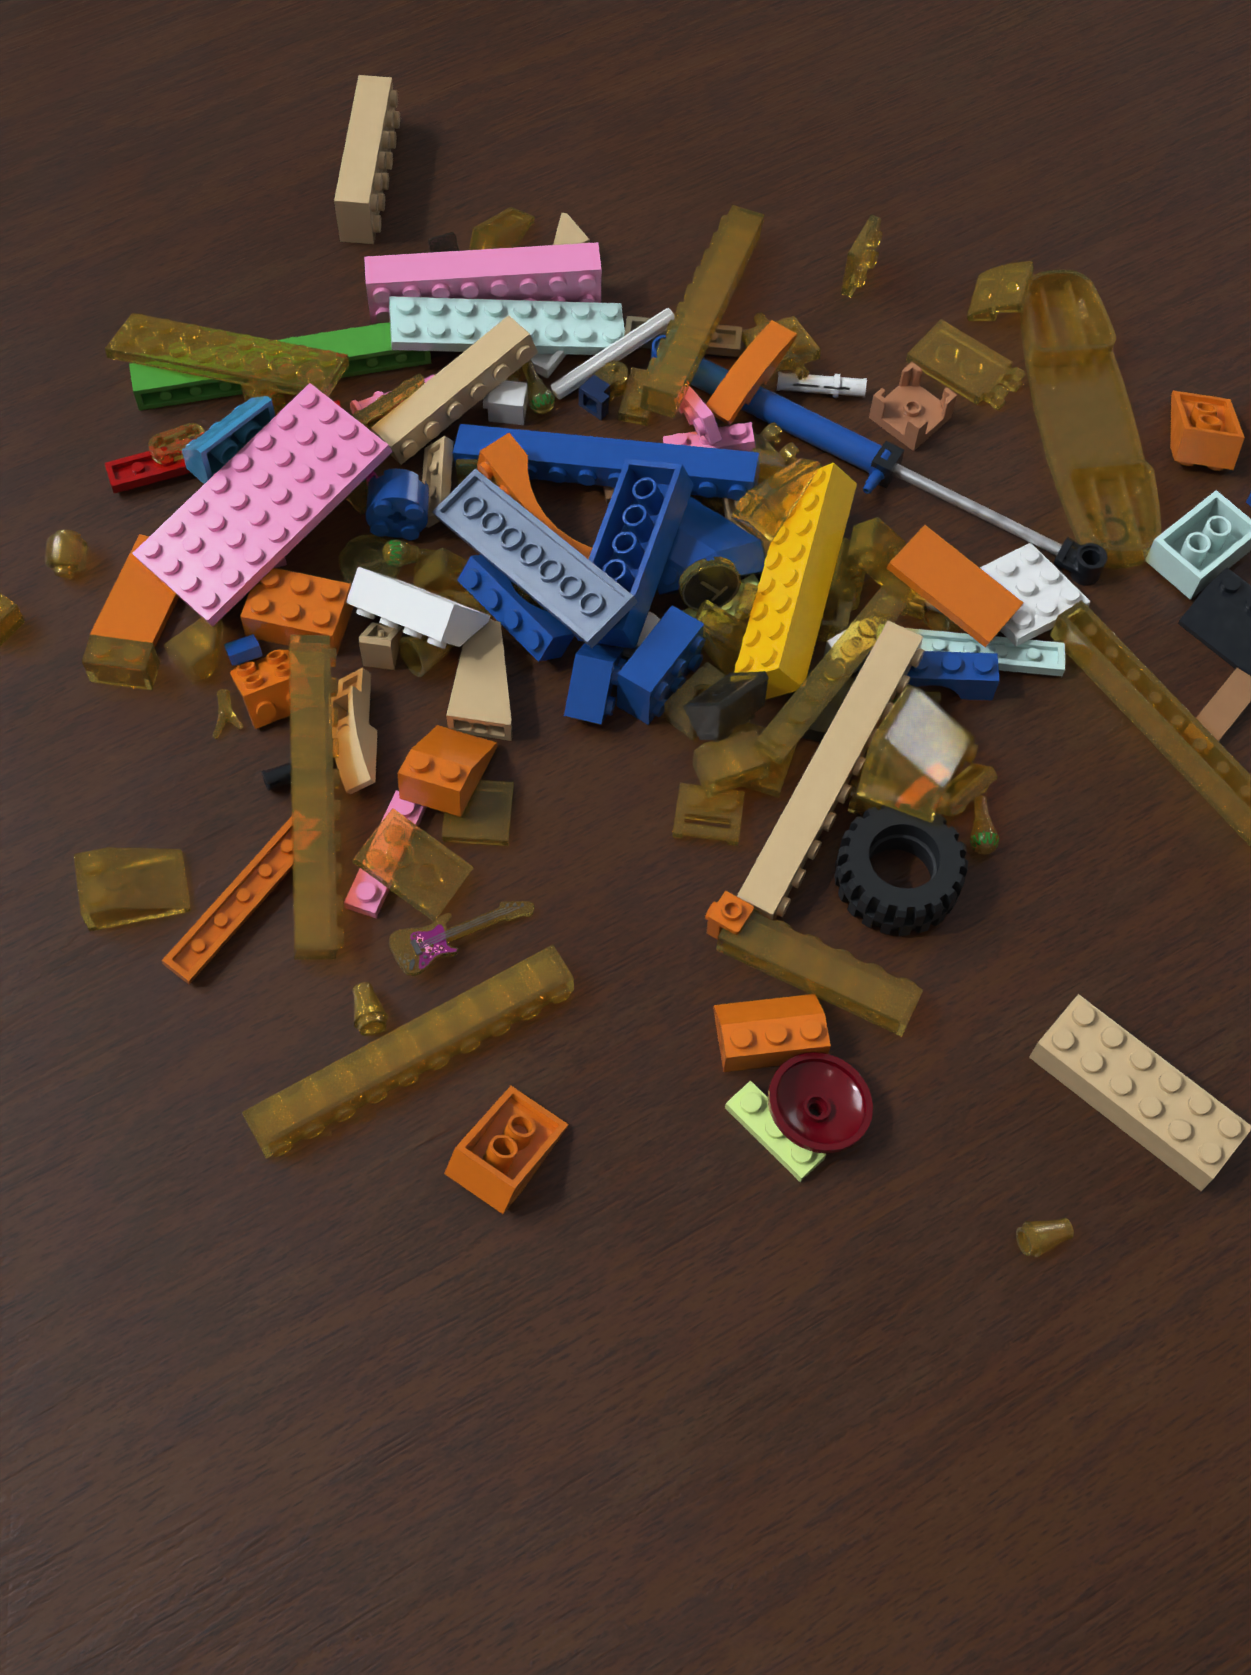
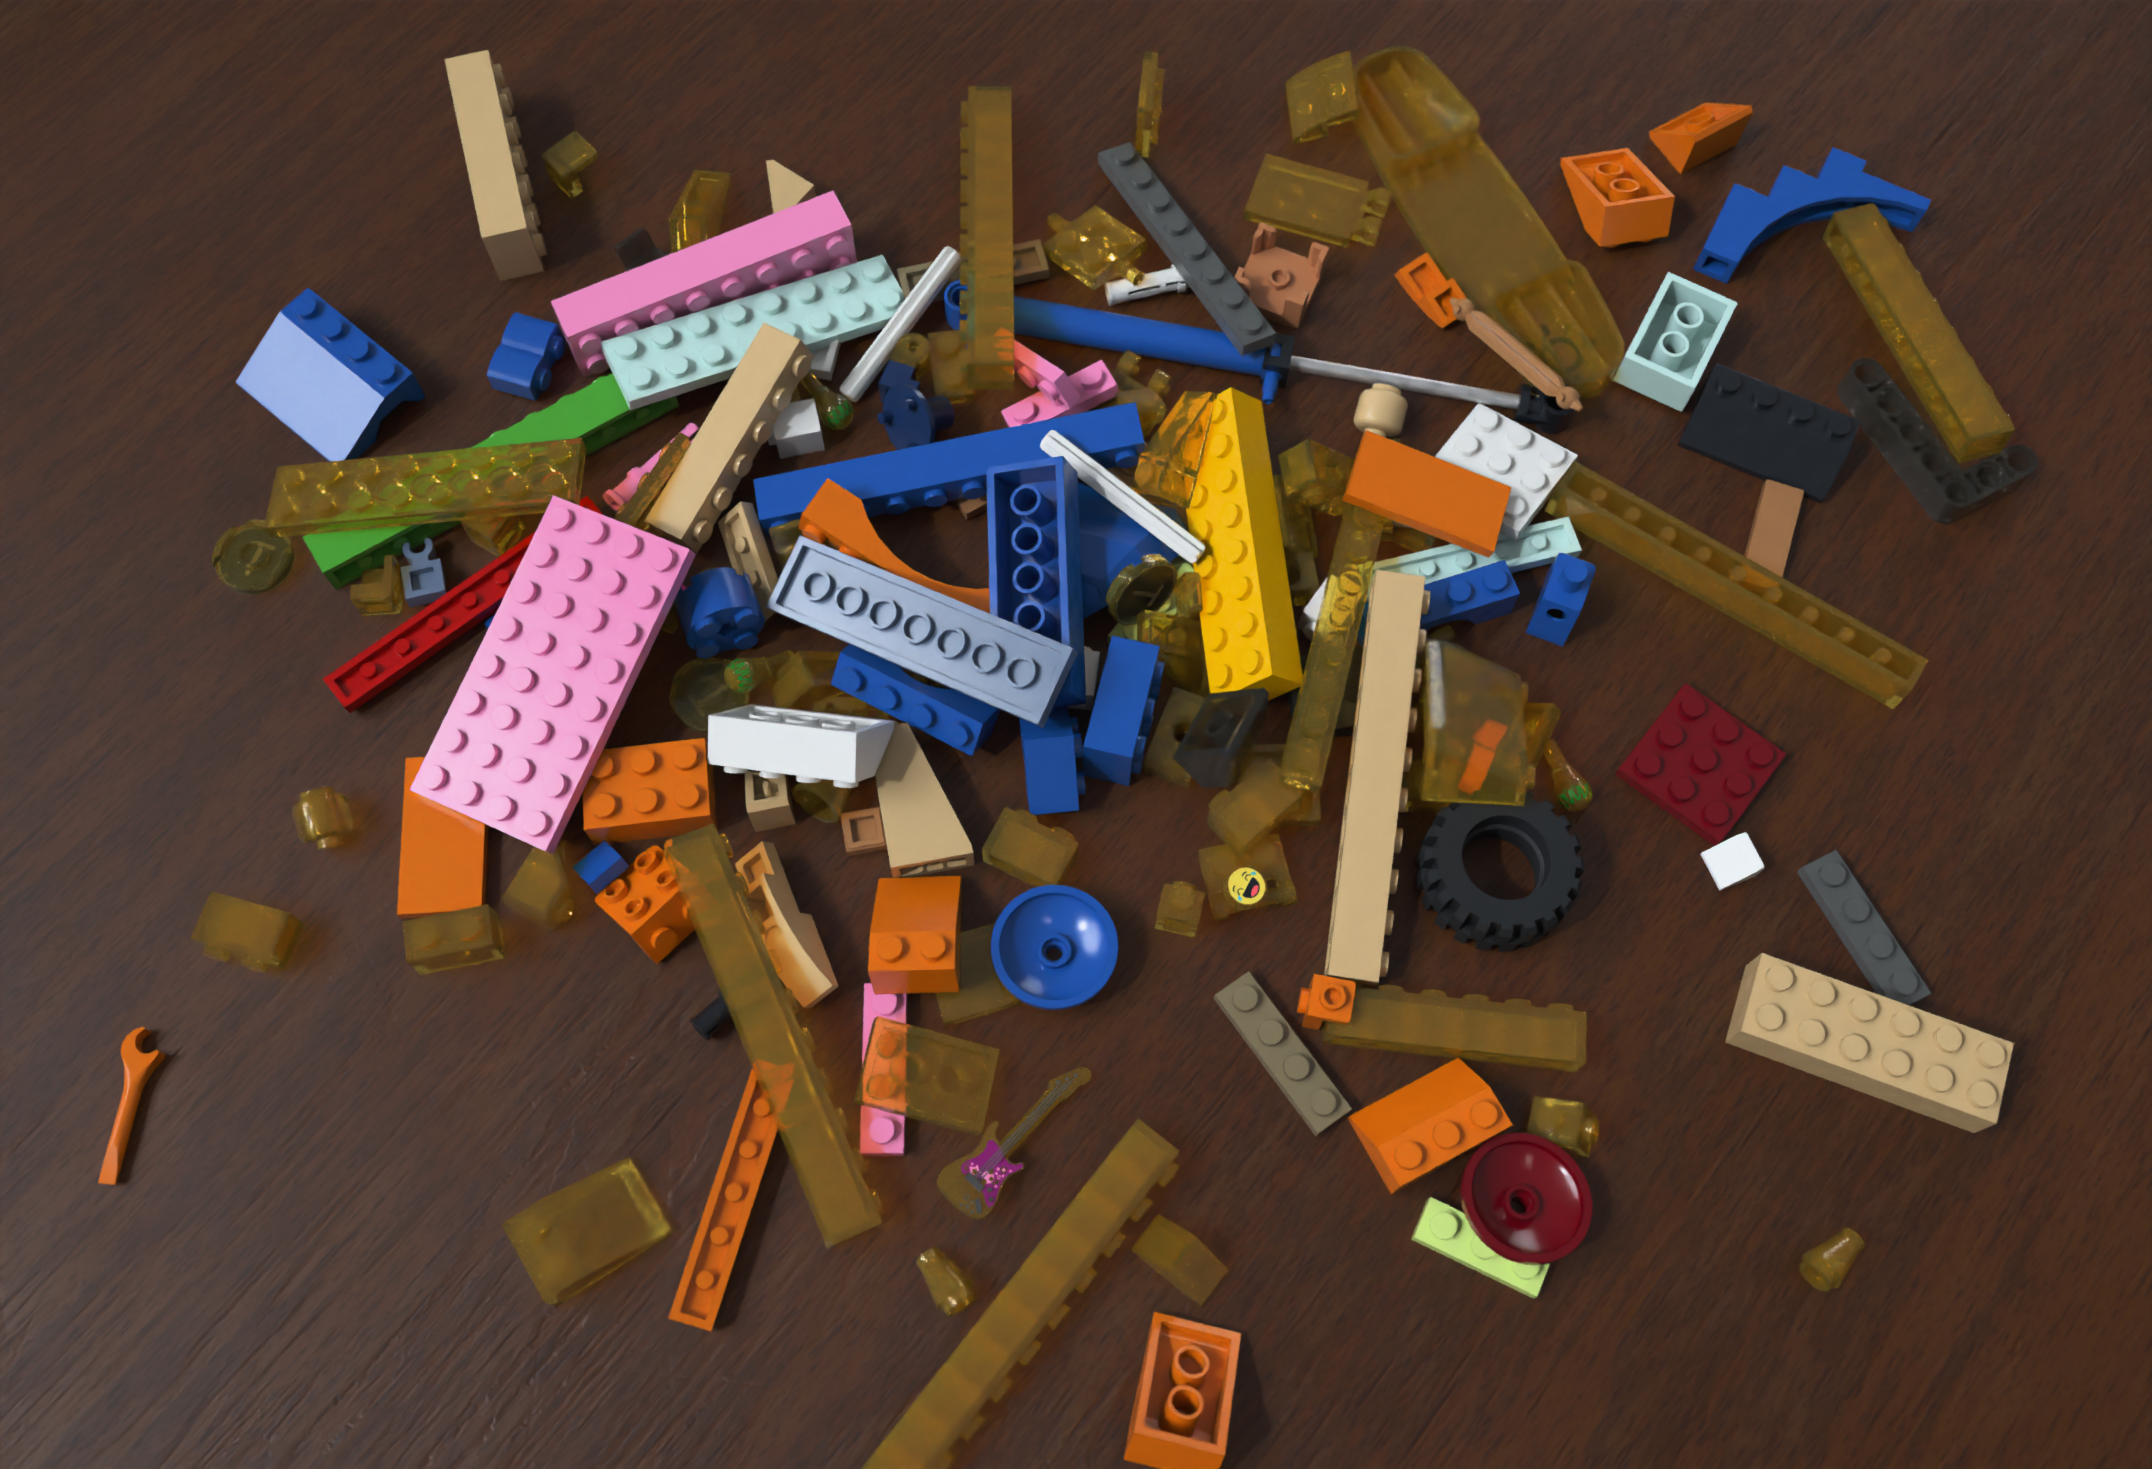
camera: 20 degrees left, 5 degrees up
(90, 371) = (251, 560): none -> clear yellow tile
(168, 415) = (380, 590): none -> clear yellow panel
(174, 441) = (407, 622): clear yellow beam -> none
(191, 266) = (326, 378): none -> piece
(204, 413) = (424, 577): none -> sand blue plate
(225, 438) = (473, 597): dark azure slope -> none
(225, 713) = (611, 956): clear yellow bar -> none
(335, 295) = (525, 356): none -> blue brick
(418, 171) = (566, 160): none -> clear yellow panel
(437, 689) = (863, 831): none -> medium nougat tile
(537, 793) = (1049, 920): none -> blue dish
(546, 1057) = (1180, 1258): none -> clear yellow slope
(554, 741) = (1030, 849): none -> clear yellow brick
(594, 419) = (912, 417): none -> dark blue piece
(649, 811) = (1179, 908): none -> clear yellow brick
(682, 945) = (1282, 1054): none -> dark tan plate
(701, 817) = (1245, 887): none -> tile
(723, 517) = (1124, 497): none -> white axle
(750, 371) = (1079, 297): orange slope -> none
(848, 365) = (1187, 249): none -> dark grey plate
(876, 1066) = (1564, 1123): none -> clear yellow bracket
(951, 522) = (1381, 410): none -> tan head
(1029, 455) = (1430, 289): none -> orange slope
(1040, 690) = (1565, 590): none -> blue torso
(1071, 514) = (1516, 354): none -> medium nougat wheel
(1089, 930) = (1733, 861): none -> white slope
(1095, 853) = (1700, 764): none -> dark red plate
(1173, 1012) = (1862, 930): none -> dark grey plate

